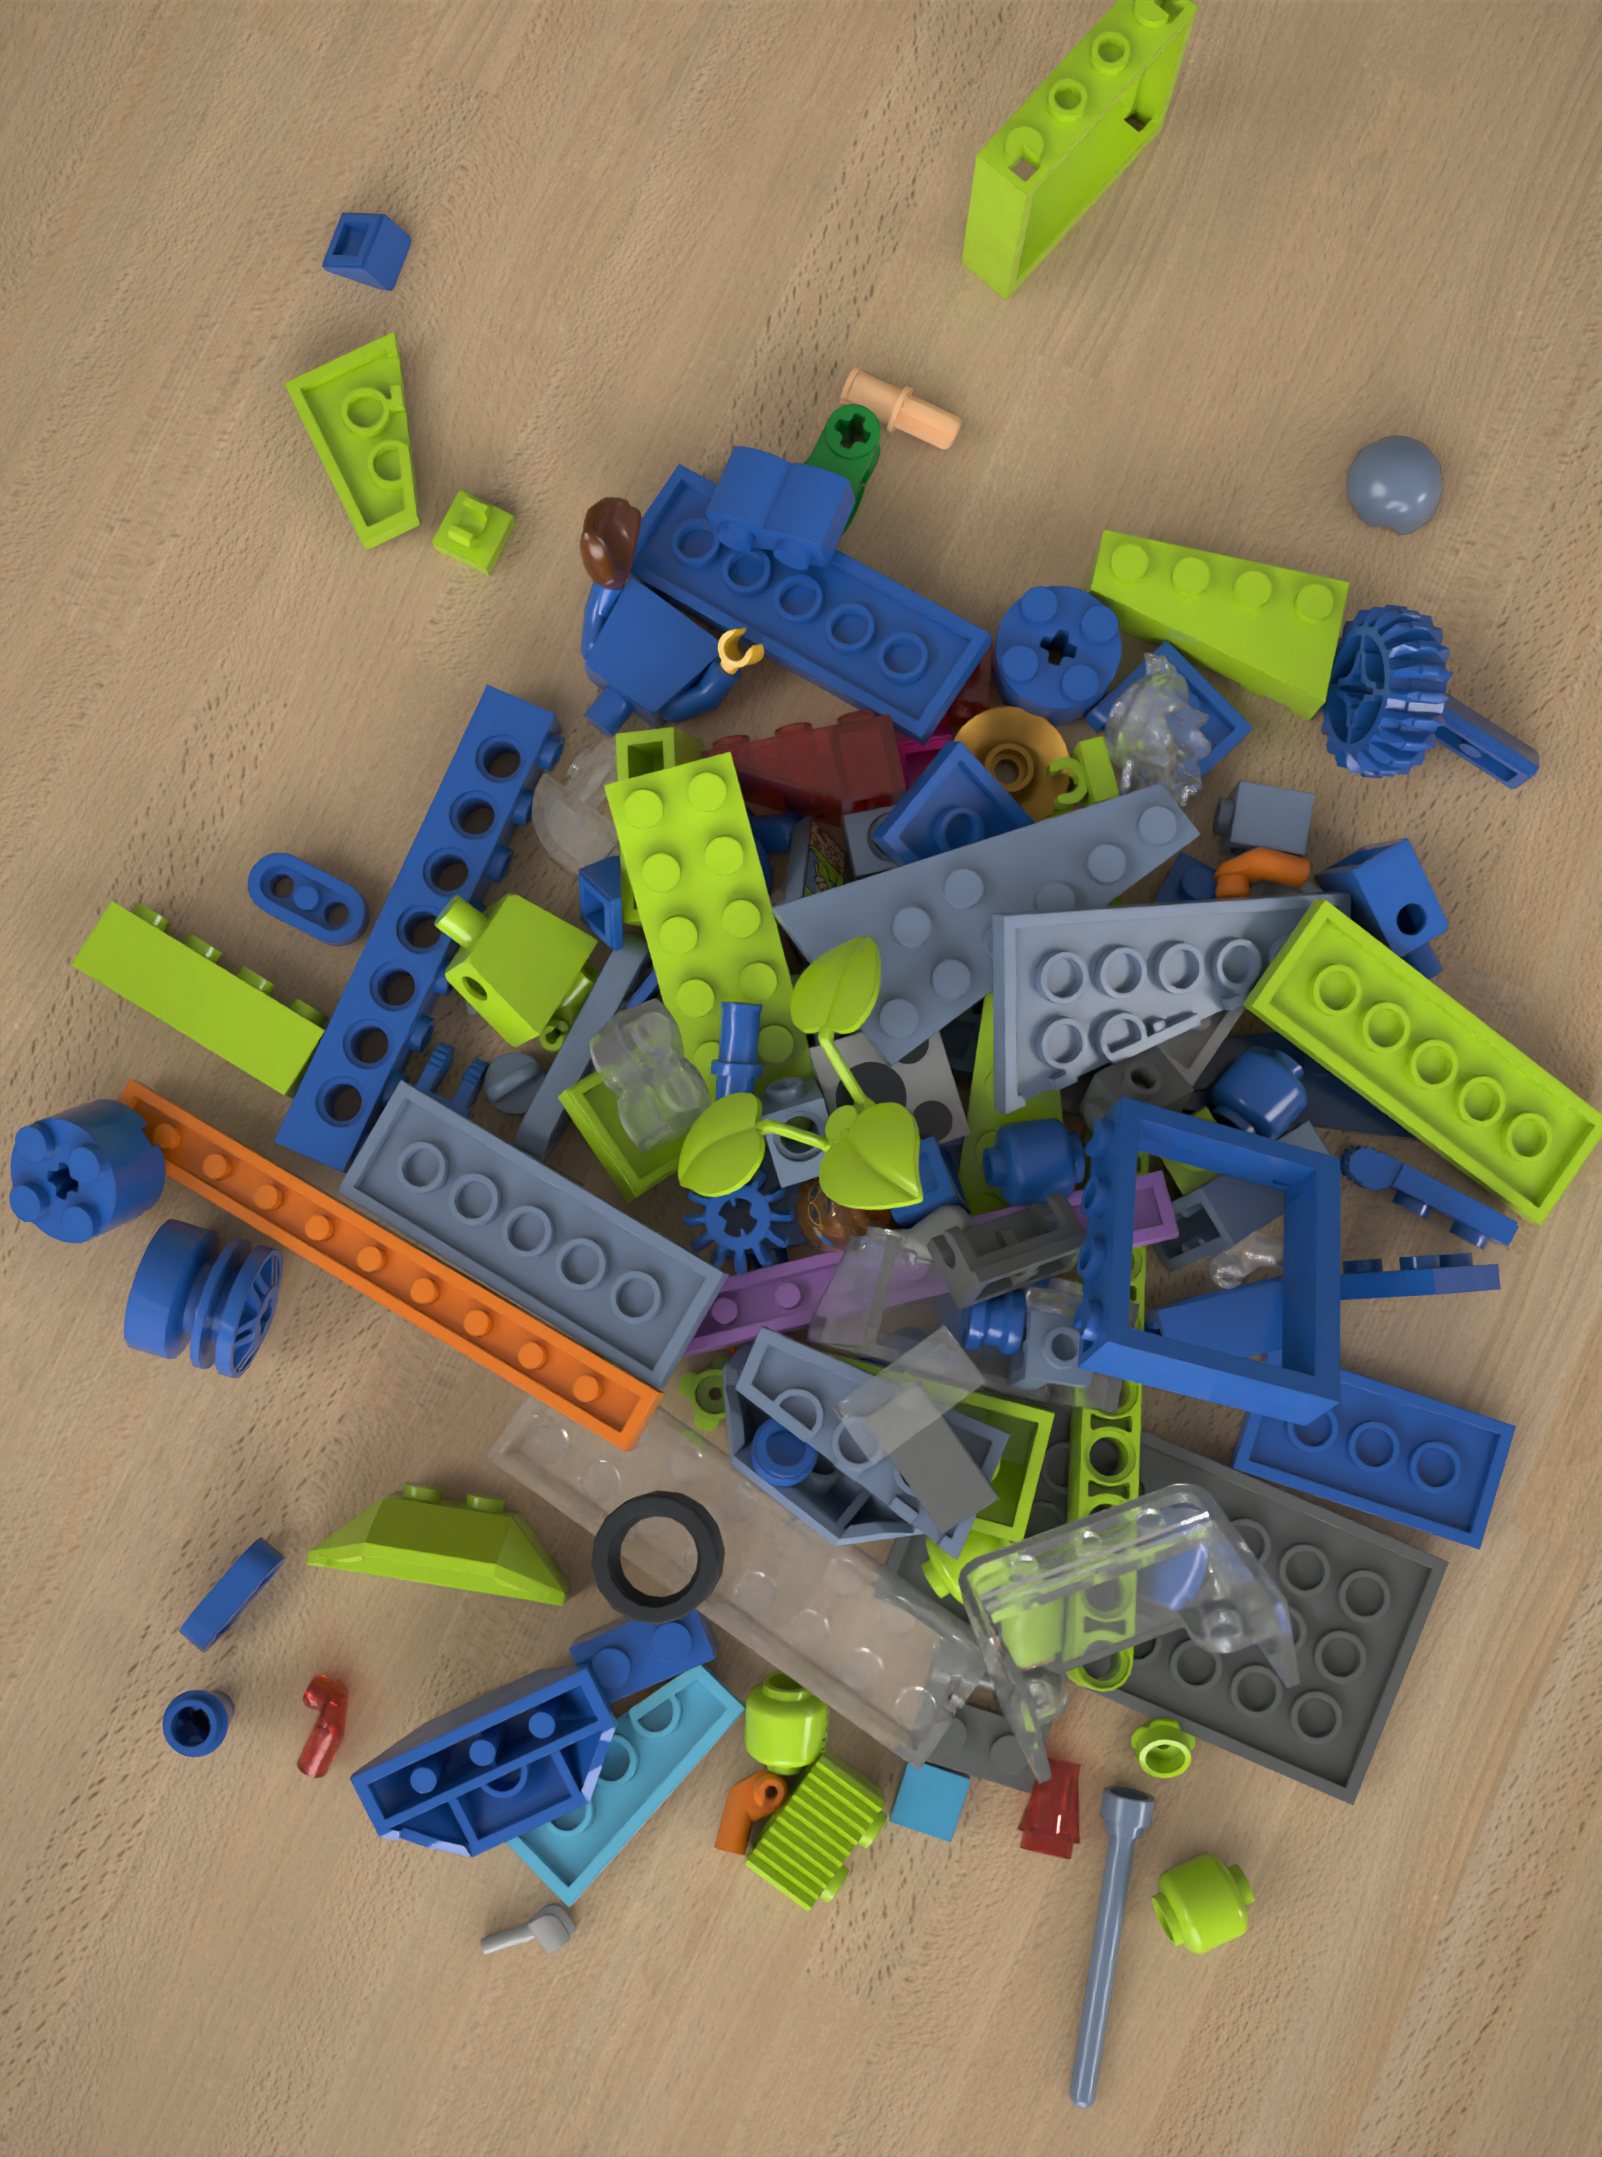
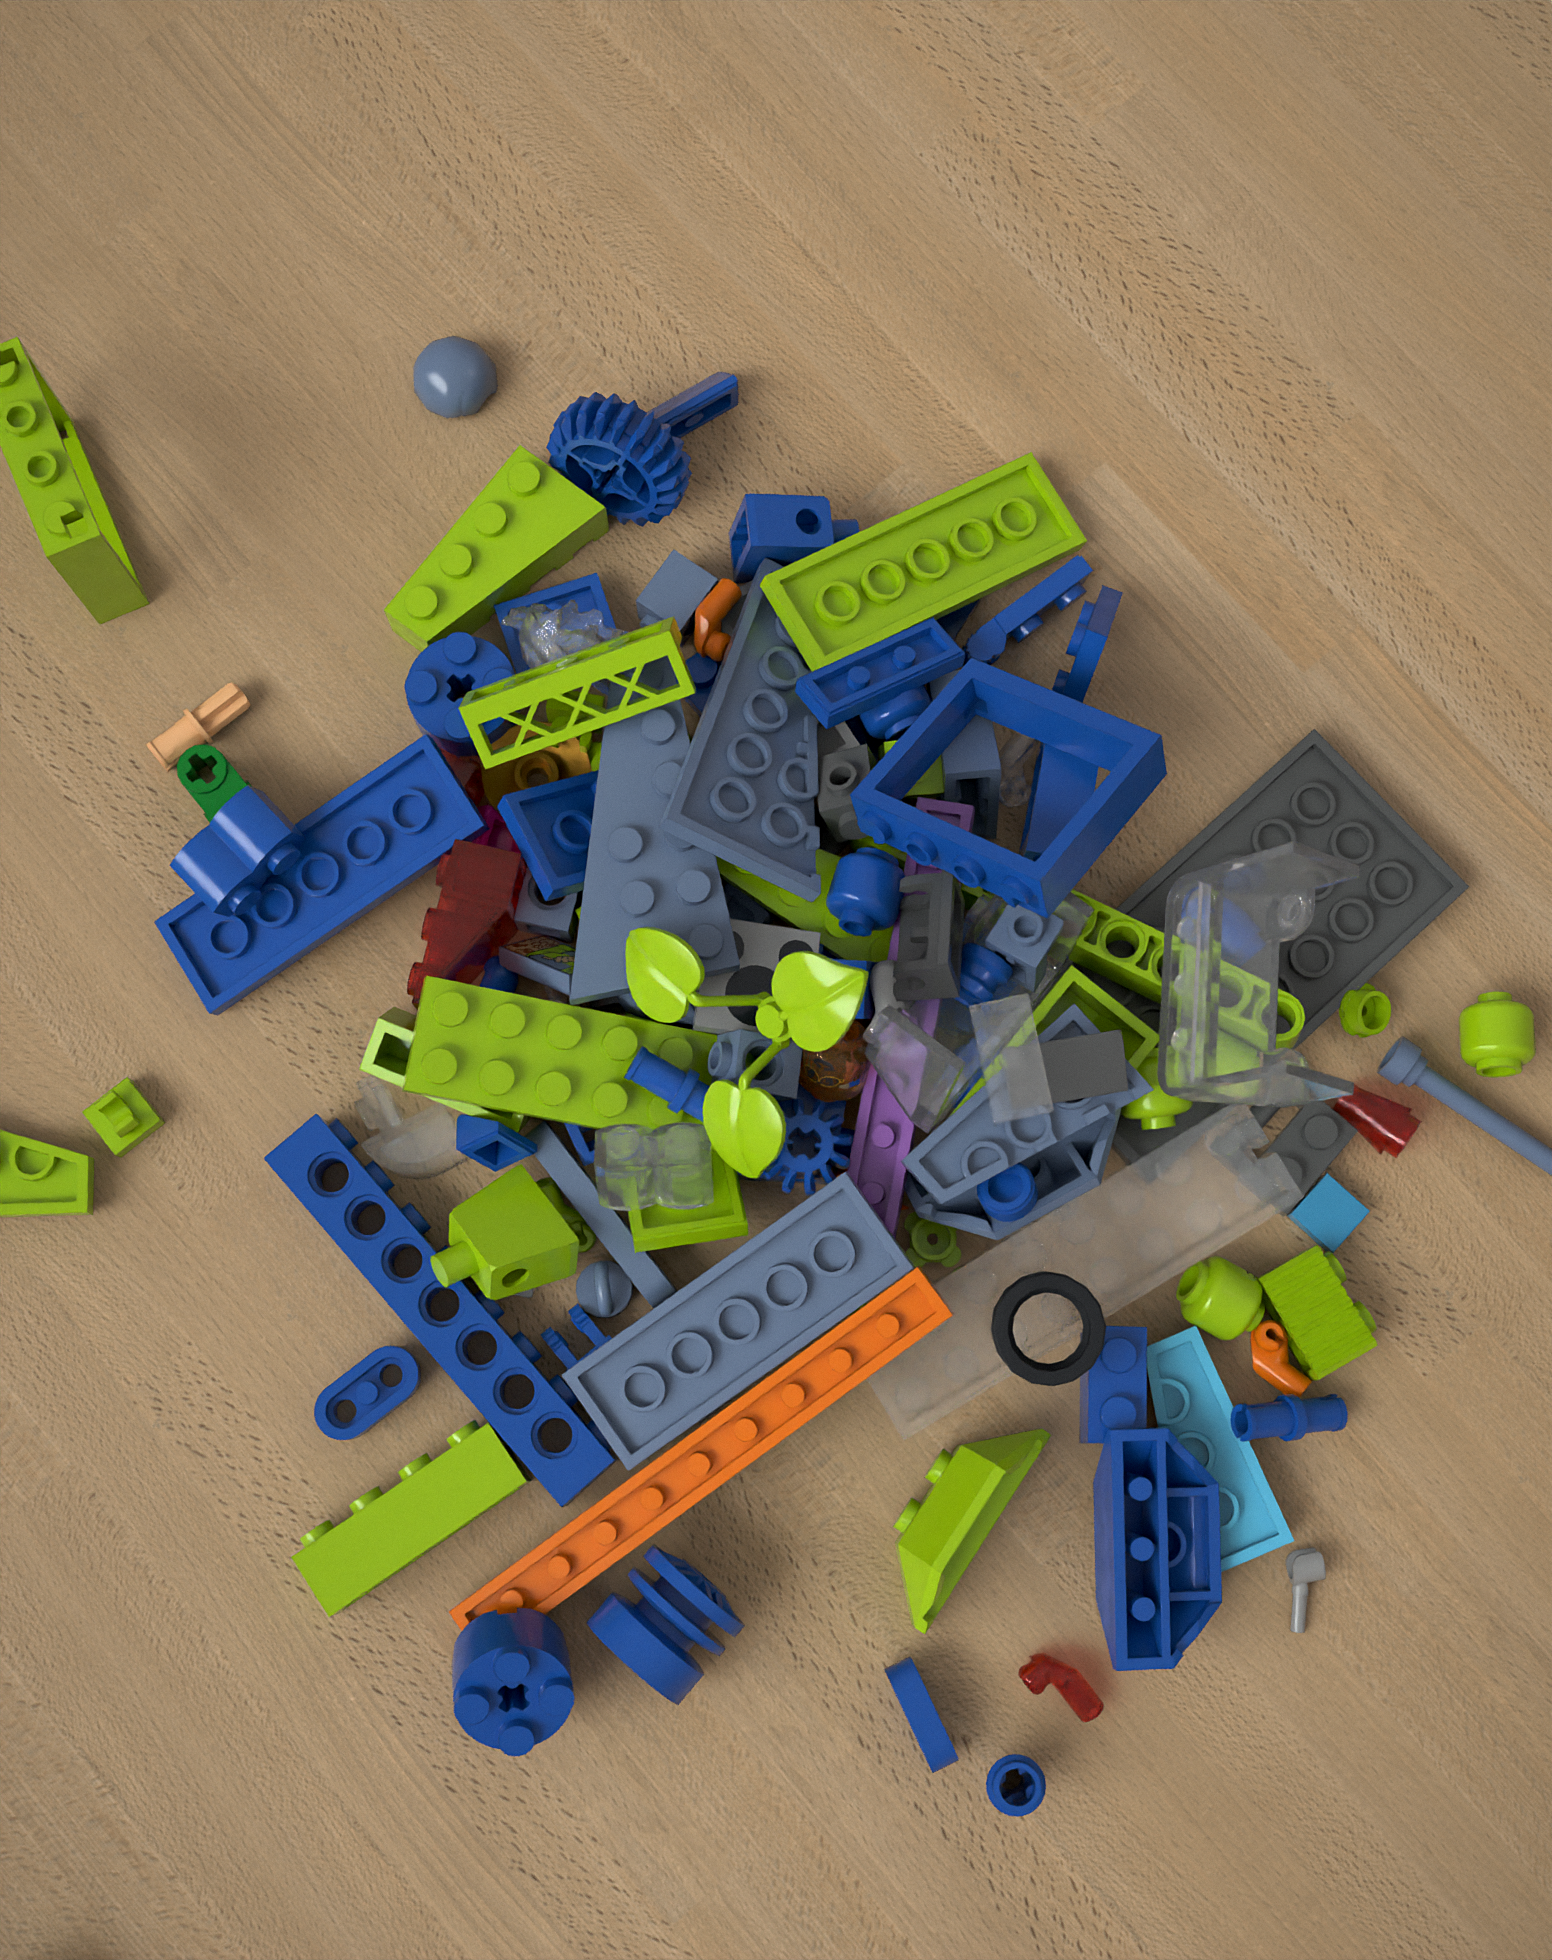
camera: 70 degrees left, 5 degrees down
(638, 644) = (293, 1020): blue torso -> none
(692, 1847) = (1288, 1417): none -> blue pin
(1120, 747) = (569, 673): none -> lime fence
(1279, 1069) = (879, 673): none -> blue tile
(1386, 1456) = (1213, 739): blue plate -> none

